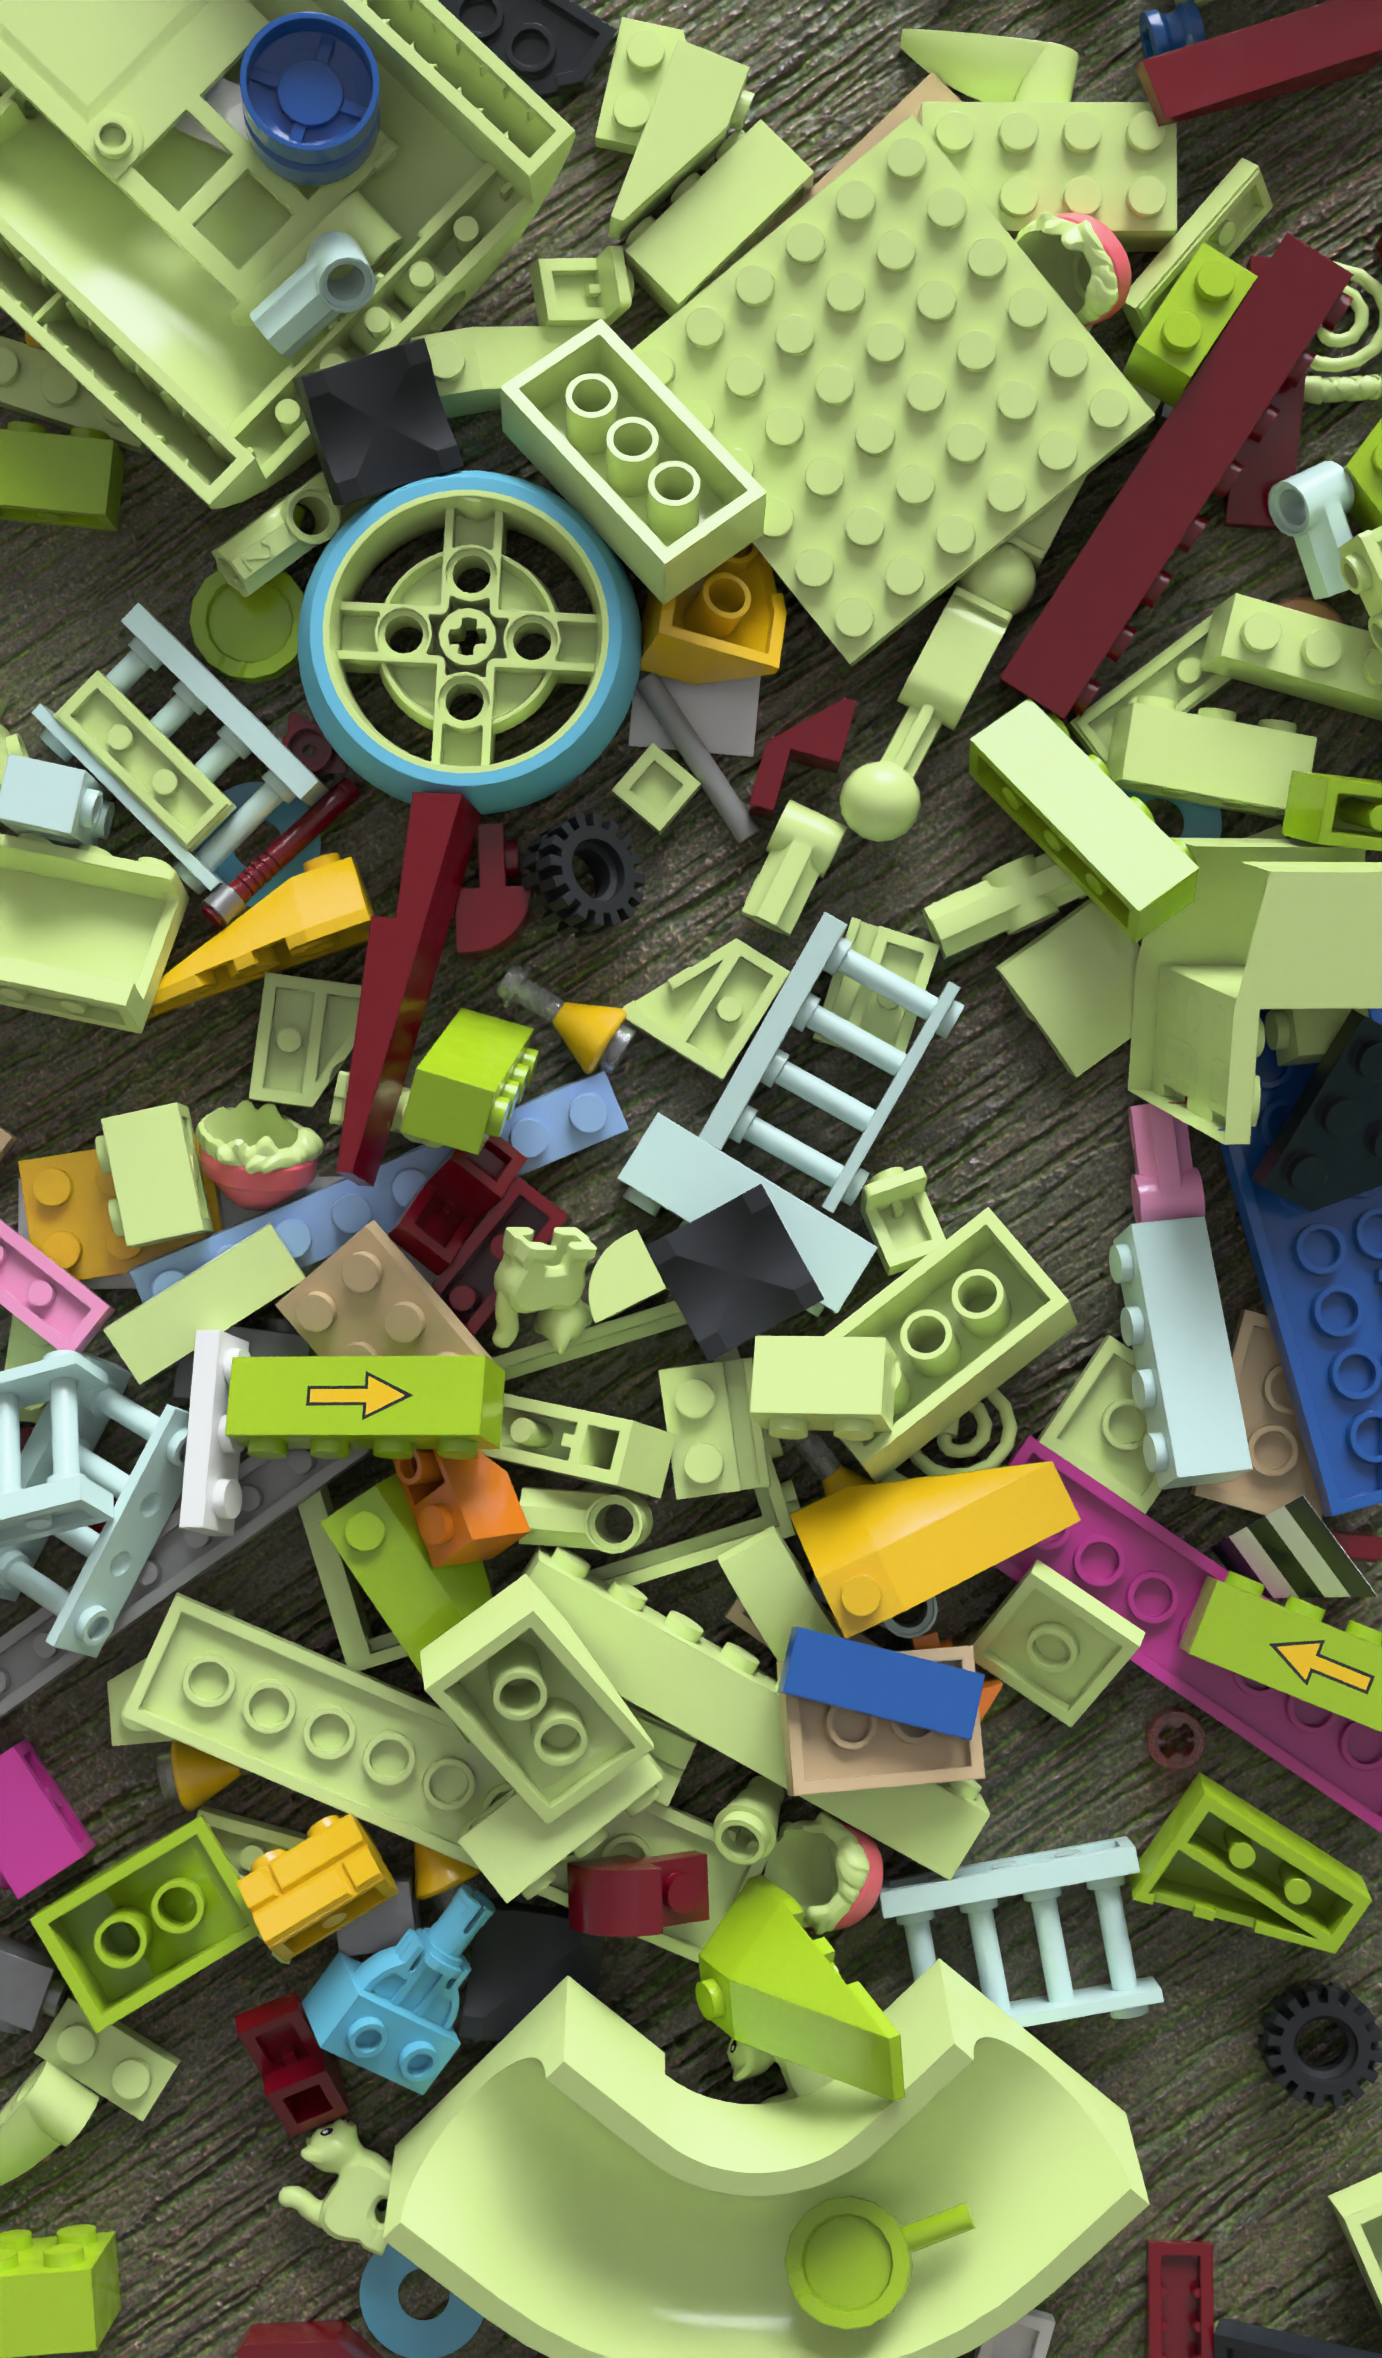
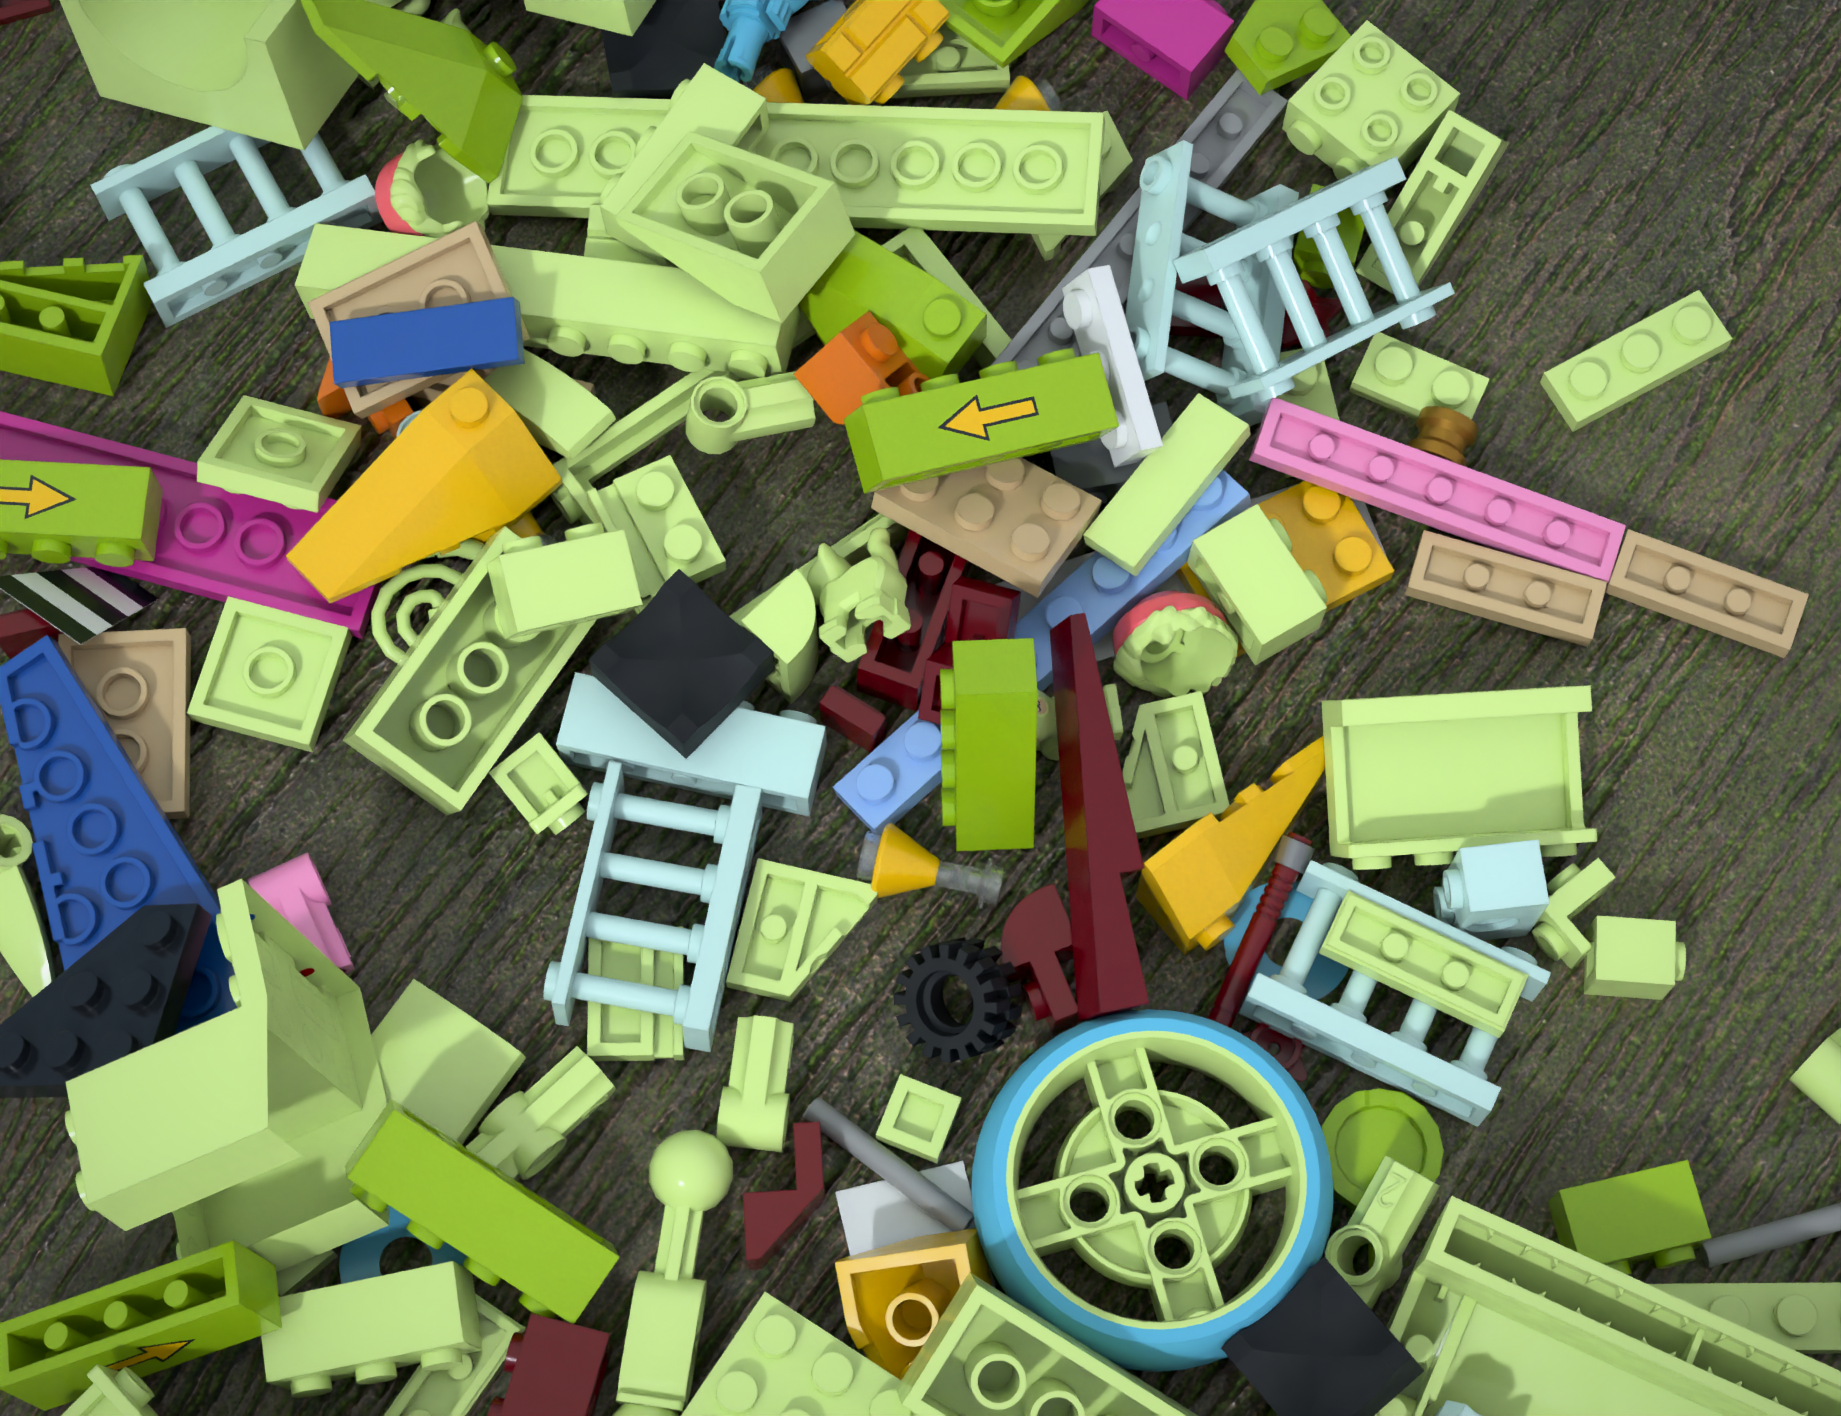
camera: 160 degrees right, 15 degrees down
(584, 1445) = (771, 471): yellowish green slope -> none
(586, 1187) = (853, 718): none -> dark red tile
(637, 1895) = (596, 114): dark red brick -> none
(749, 1823) = (512, 210): yellowish green cone -> none
(1174, 1758) = (138, 403): clear red bush -> none
(1180, 1353) = (235, 741): light aqua brick -> none

